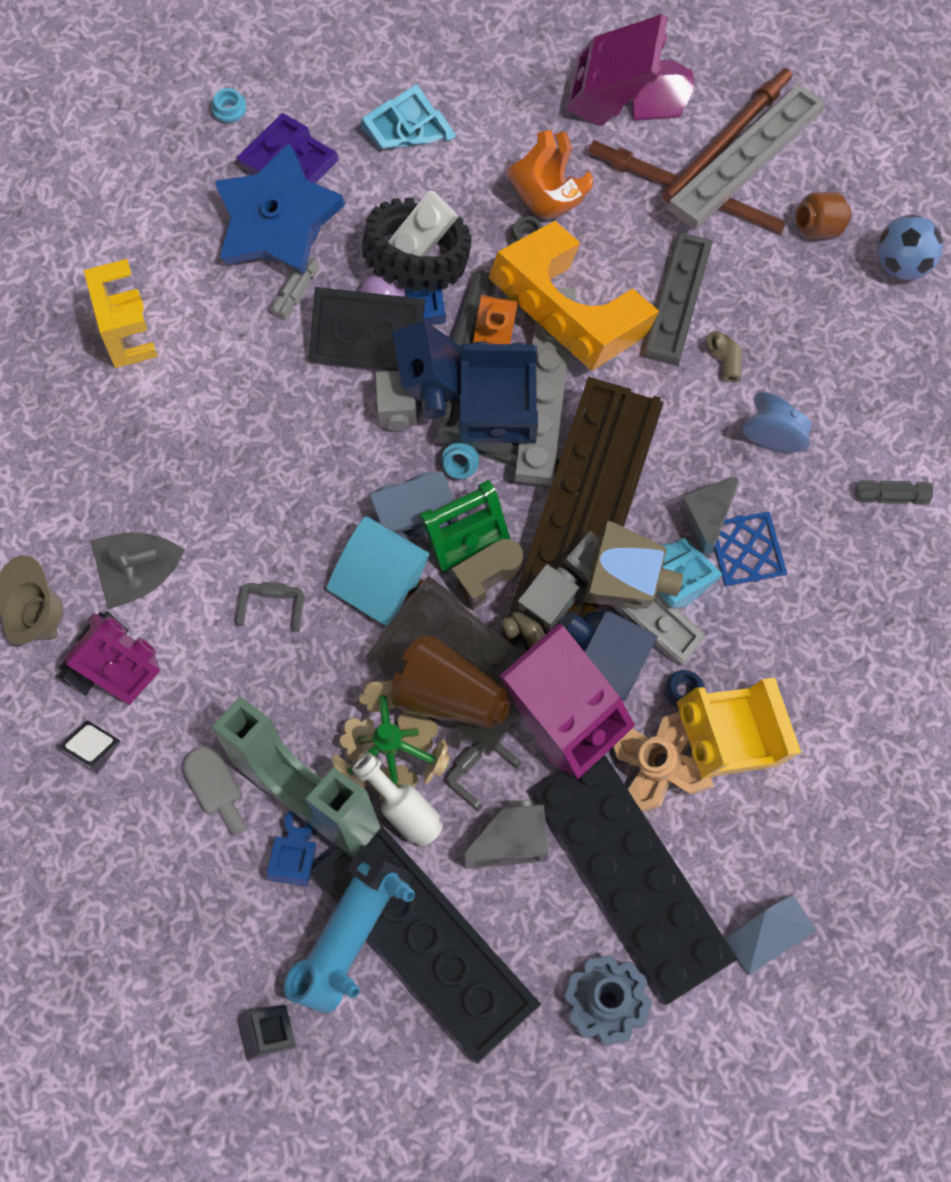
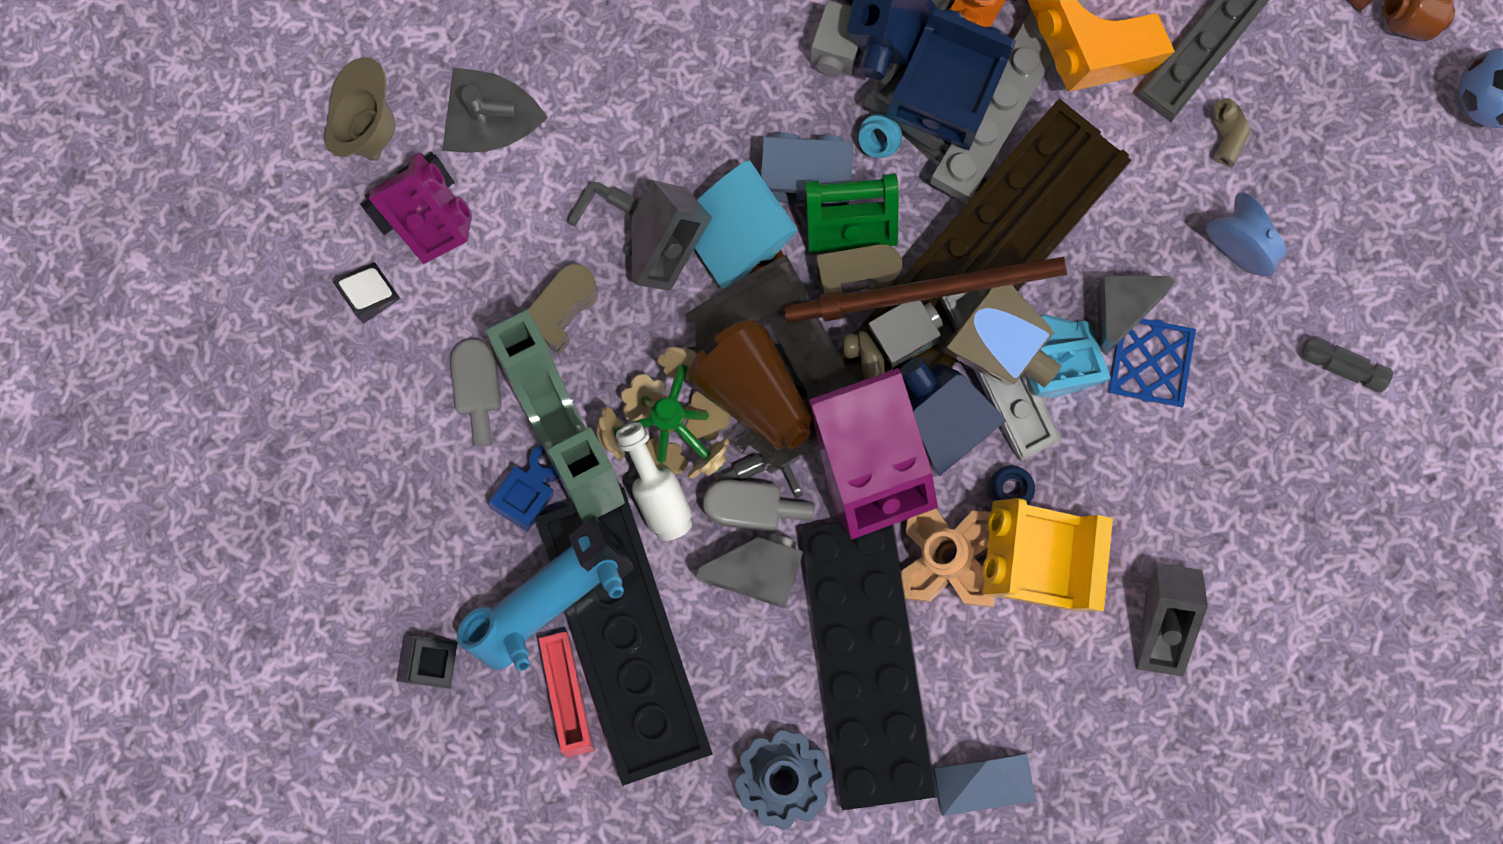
camera: 25 degrees right, 10 degrees up
(261, 681) = (565, 296): none -> dark tan leg
(322, 600) = (665, 234): none -> flat silver slope
(397, 1009) = (566, 695): none -> coral piece
(484, 787) = (751, 505): none -> light grey piece
(485, 598) = (834, 305): none -> copper bar
(856, 738) = (1171, 619): none -> flat silver slope

